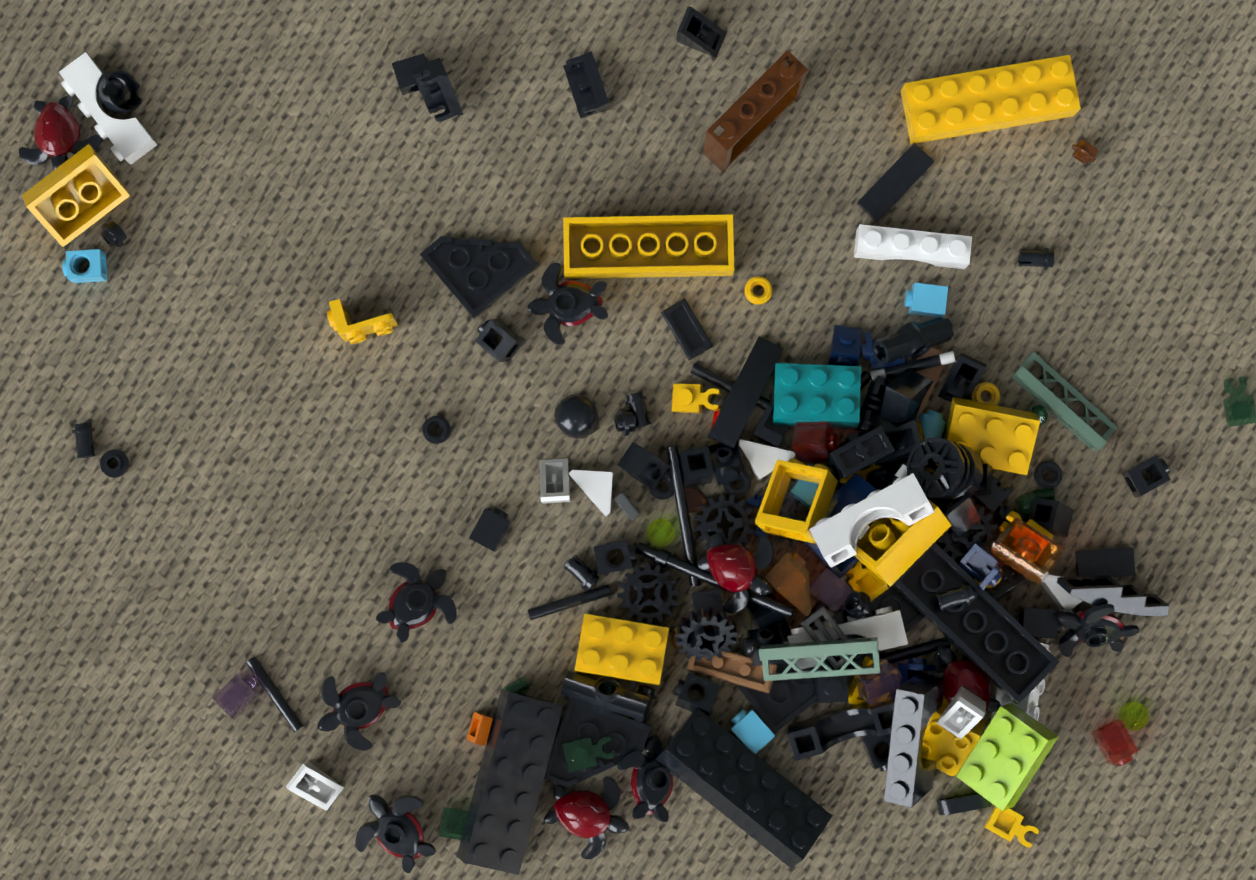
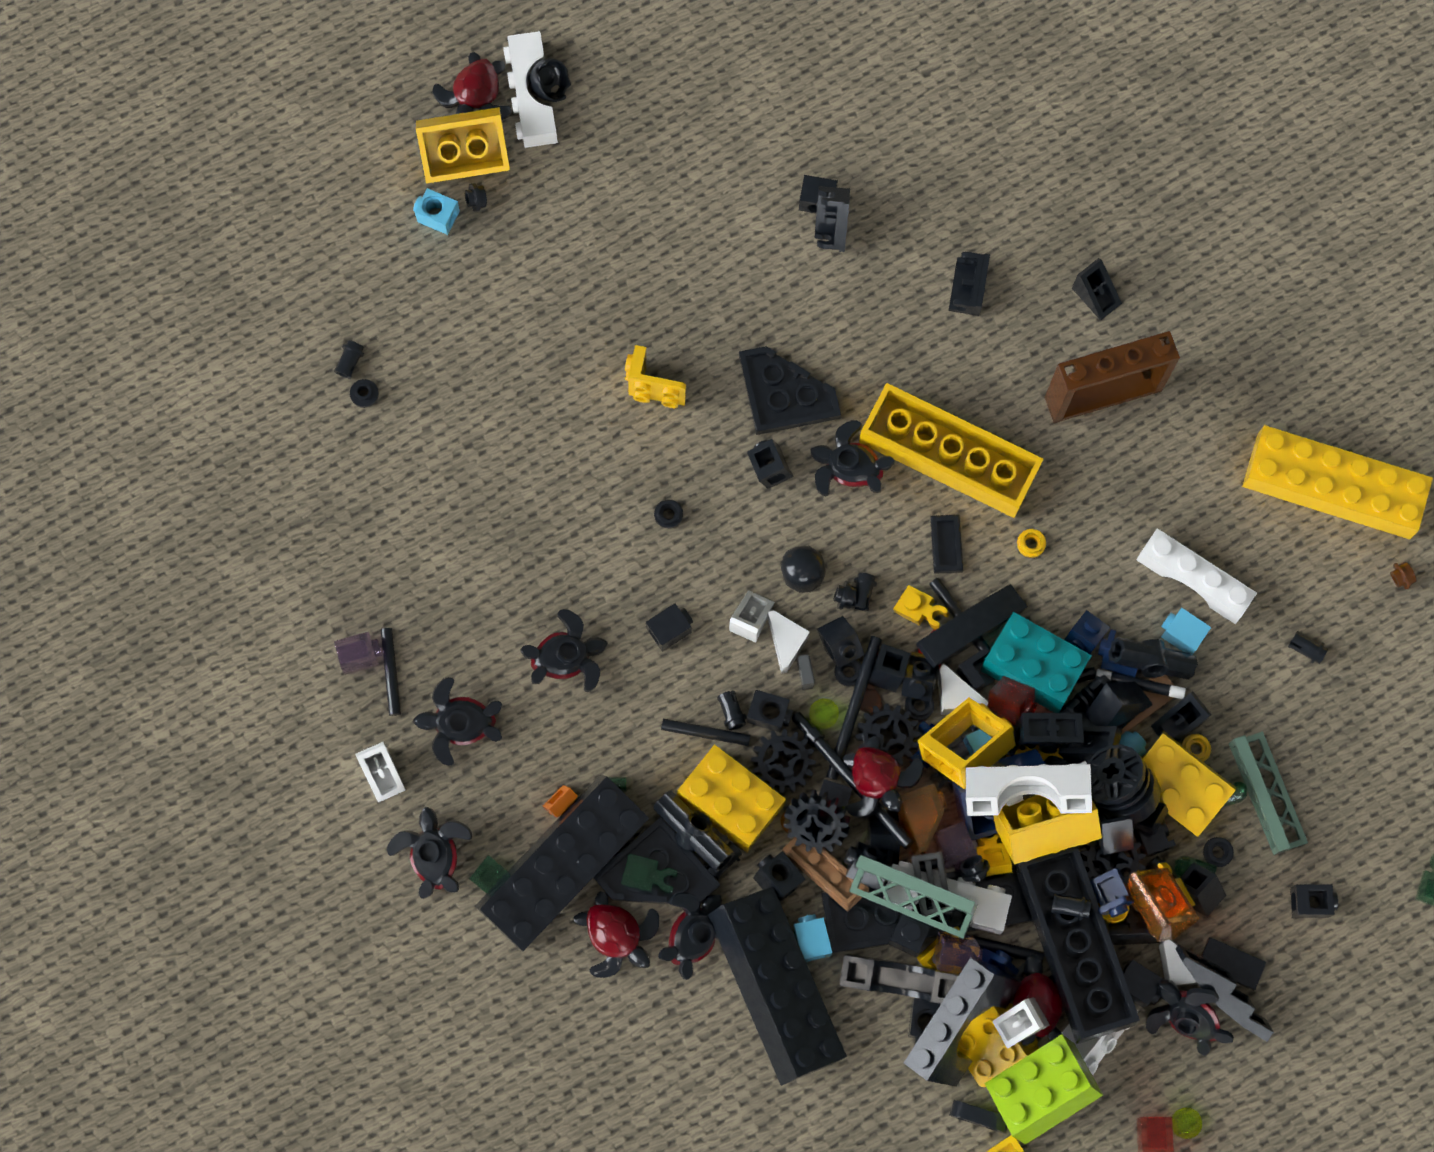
camera: 25 degrees right, 10 degrees down
(895, 182) = (1210, 512): black tile -> none

